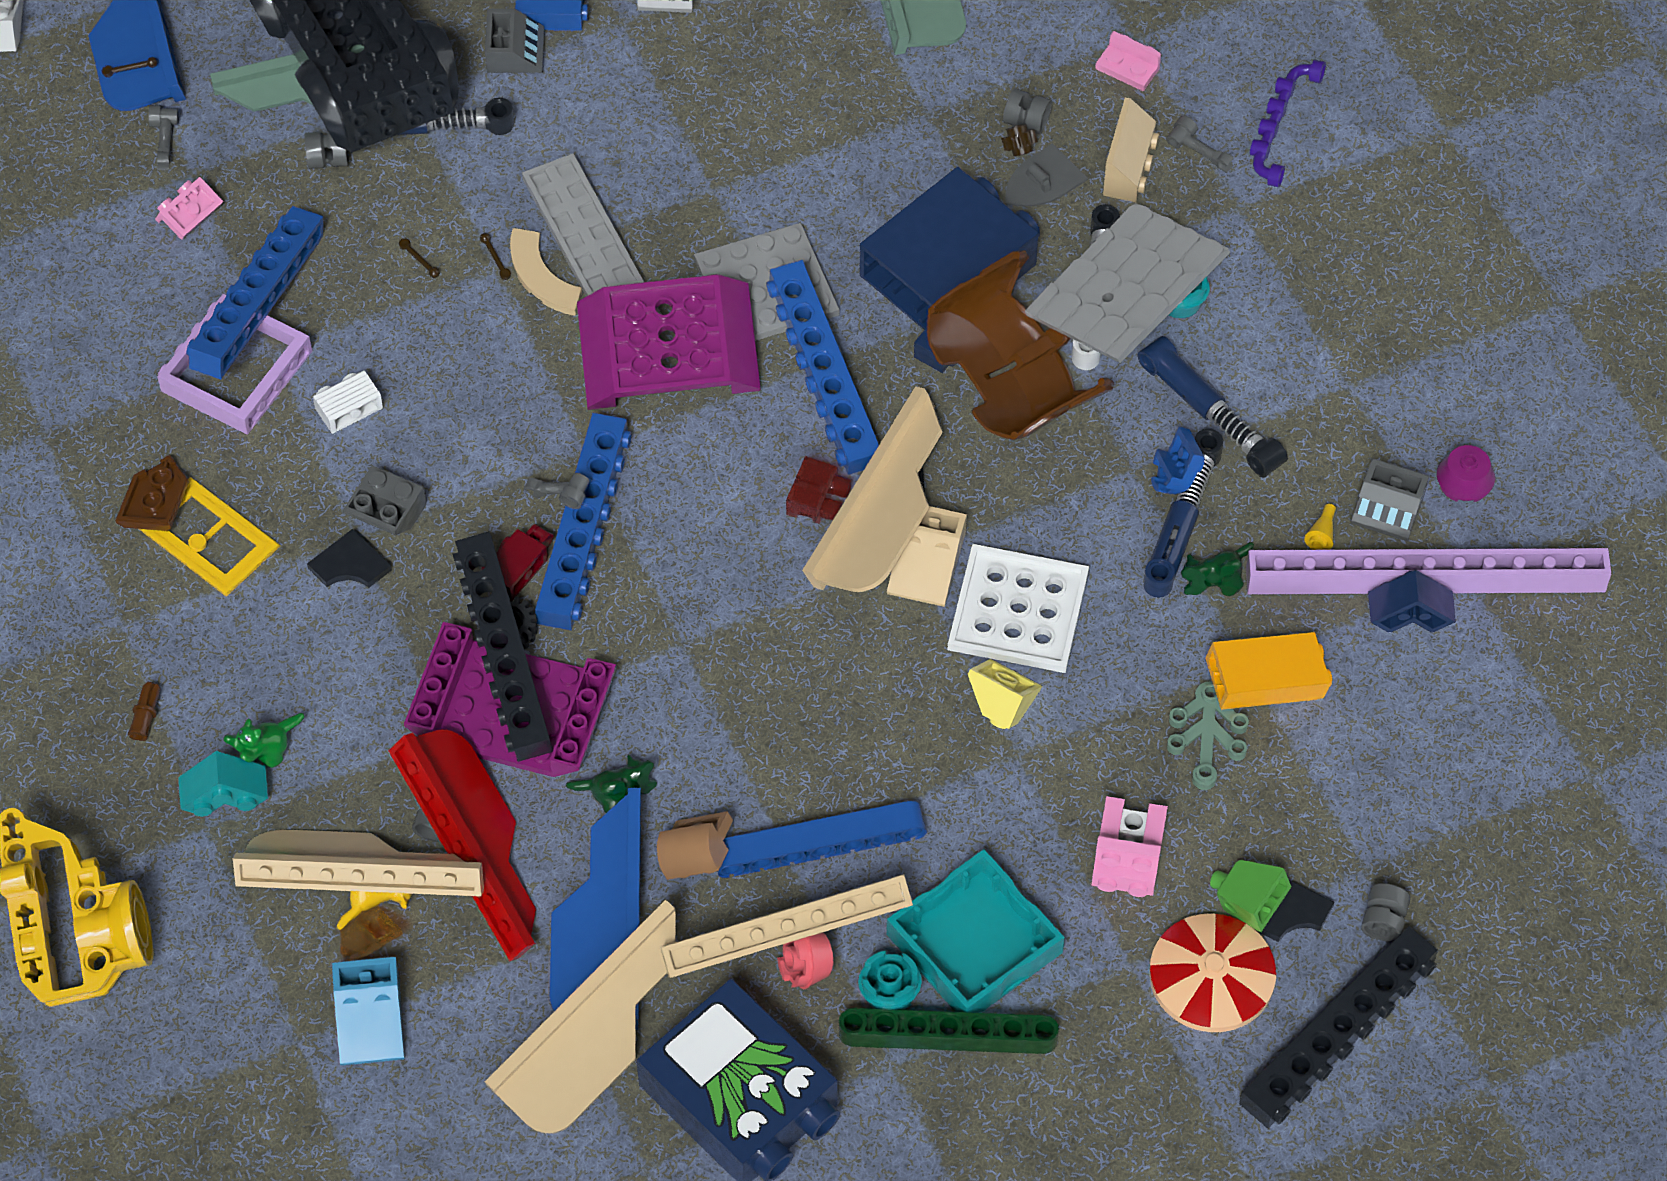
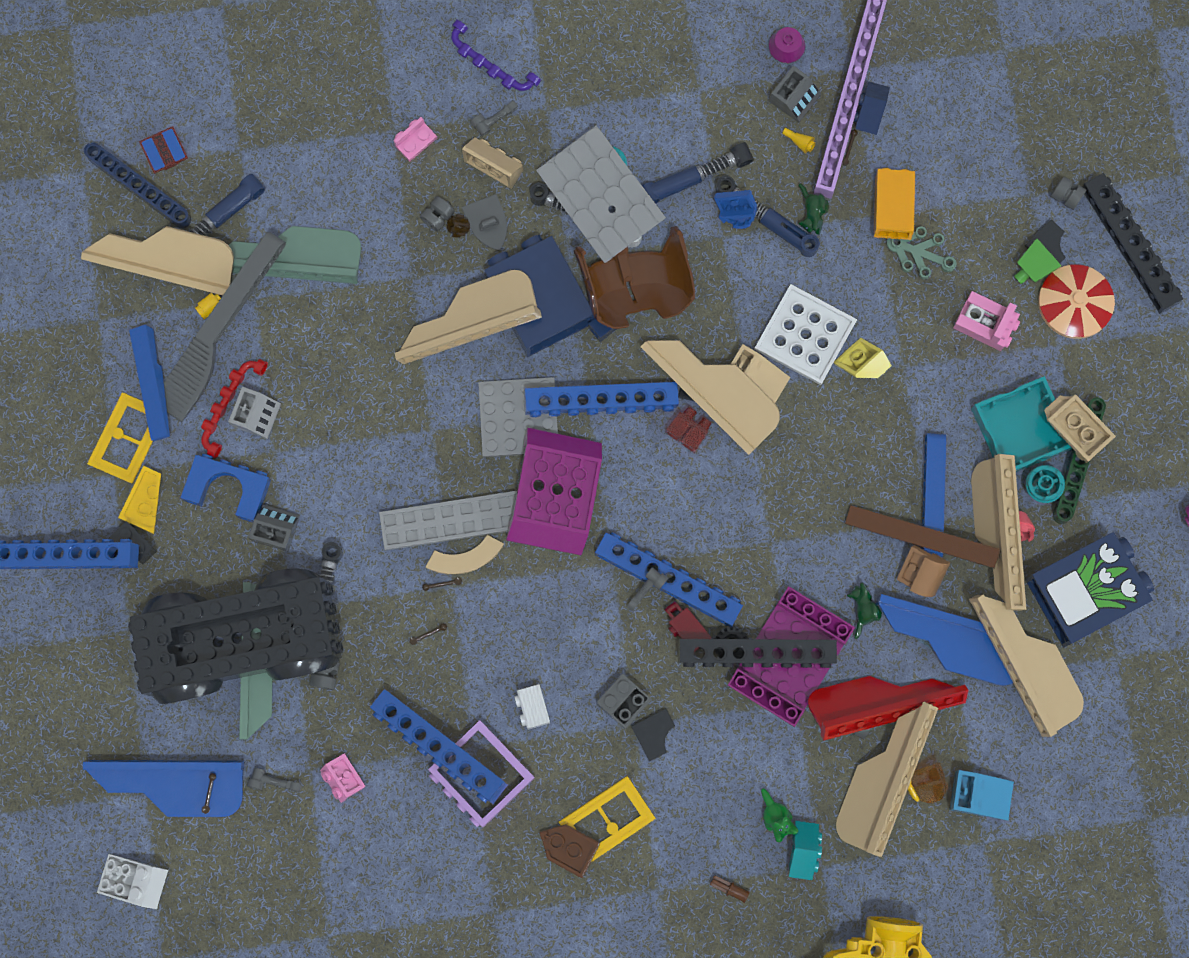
camera: 75 degrees left, 20 degrees up
(748, 826) = (923, 537): none -> reddish brown tile
(895, 181) = (474, 314): none -> tan piece
(992, 998) = (1078, 426): none -> tan slope
(1315, 600) = (845, 161): none -> dark brown hinge

